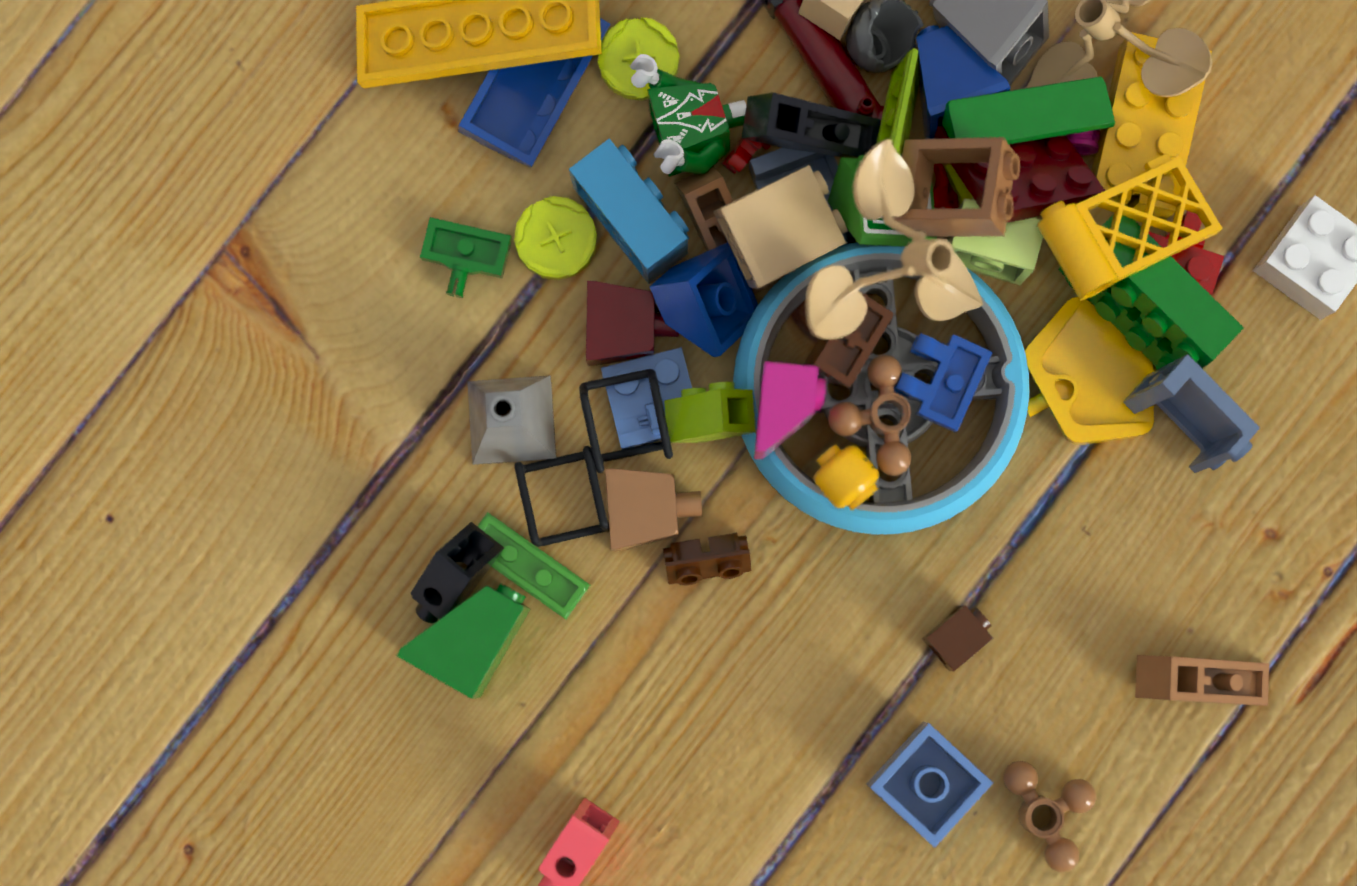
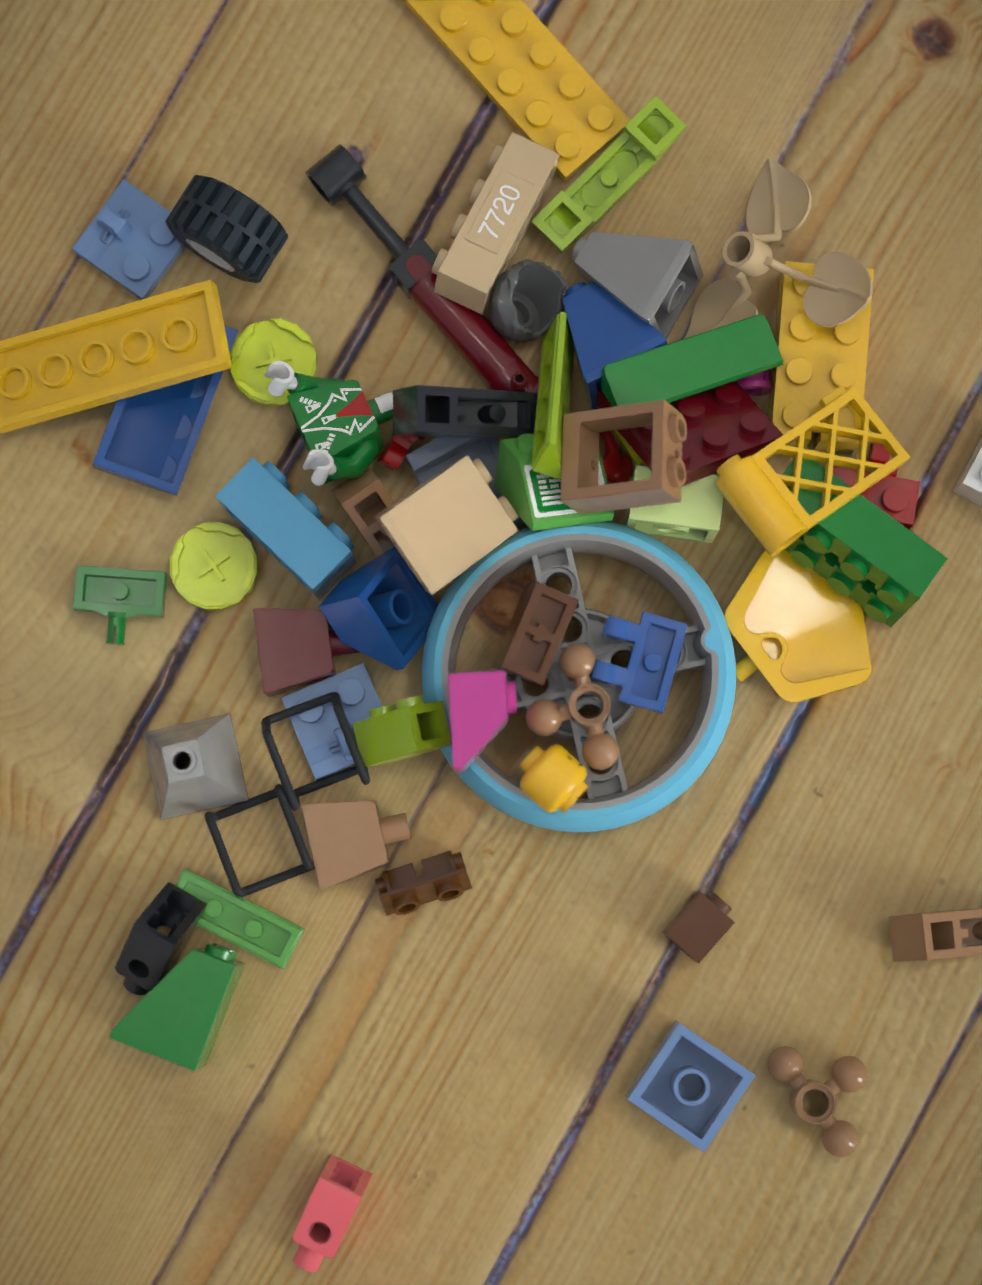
camera: 10 degrees left, 0 degrees up
(944, 290) = (627, 562): tan plant -> none
(1198, 410) = (915, 650): sand blue panel -> none

